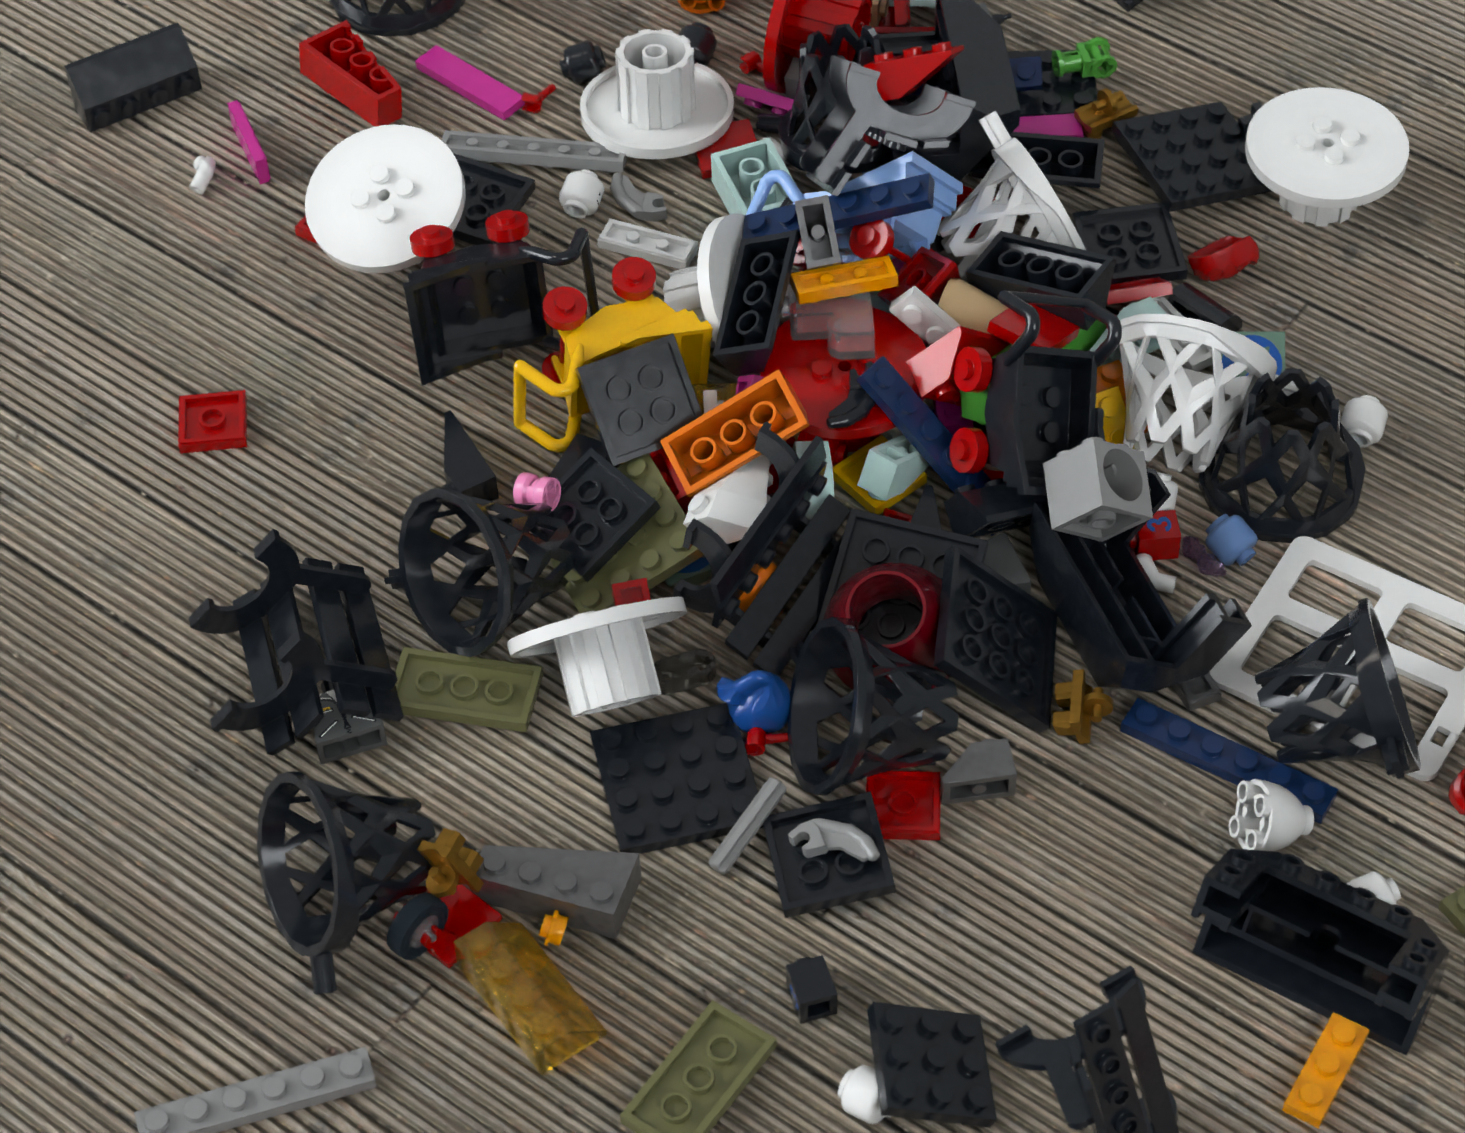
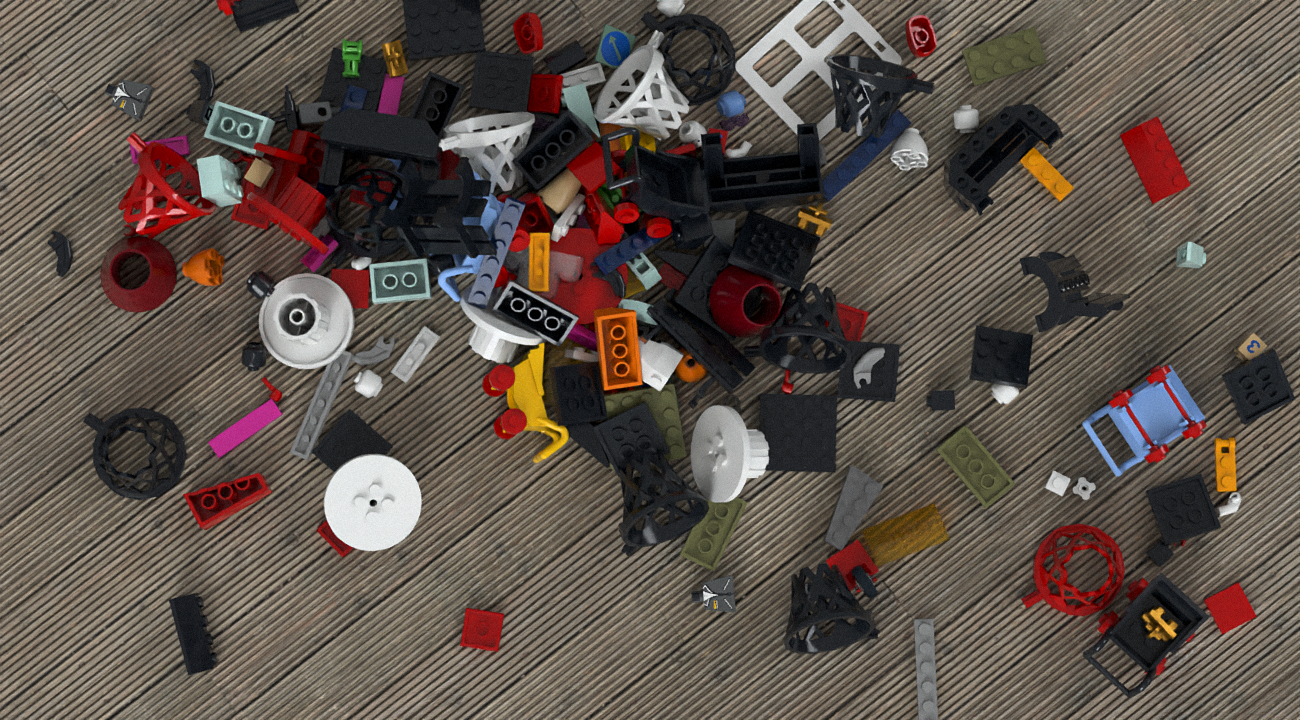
camera: 75 degrees left, 35 degrees up
(205, 169) = (280, 602): white arm -> none
(249, 142) = (263, 572): dark pink tile -> none
(299, 653) = (671, 587): black piece -> none
(450, 864) = (842, 558): pearl gold hips -> none
(464, 465) = (565, 497): black slope -> none
(485, 295) = (468, 459): black piece -> none
(532, 489) = (613, 463): bright pink wheel -> none
(553, 928) = (873, 515): light orange plate -> none
(630, 591) = (688, 429): red plate -> none
(747, 825) = (841, 406): light grey axle -> none
(751, 62) = (280, 253): red hand -> none
(756, 700) = (767, 381): blue piece -> none
(817, 232) = (517, 269): flat silver slope -> none
(909, 71) = (391, 178): red slope -> none
(980, 773) = (840, 280): flat silver slope -> none
(1097, 489) = (718, 172): light grey brick -> none

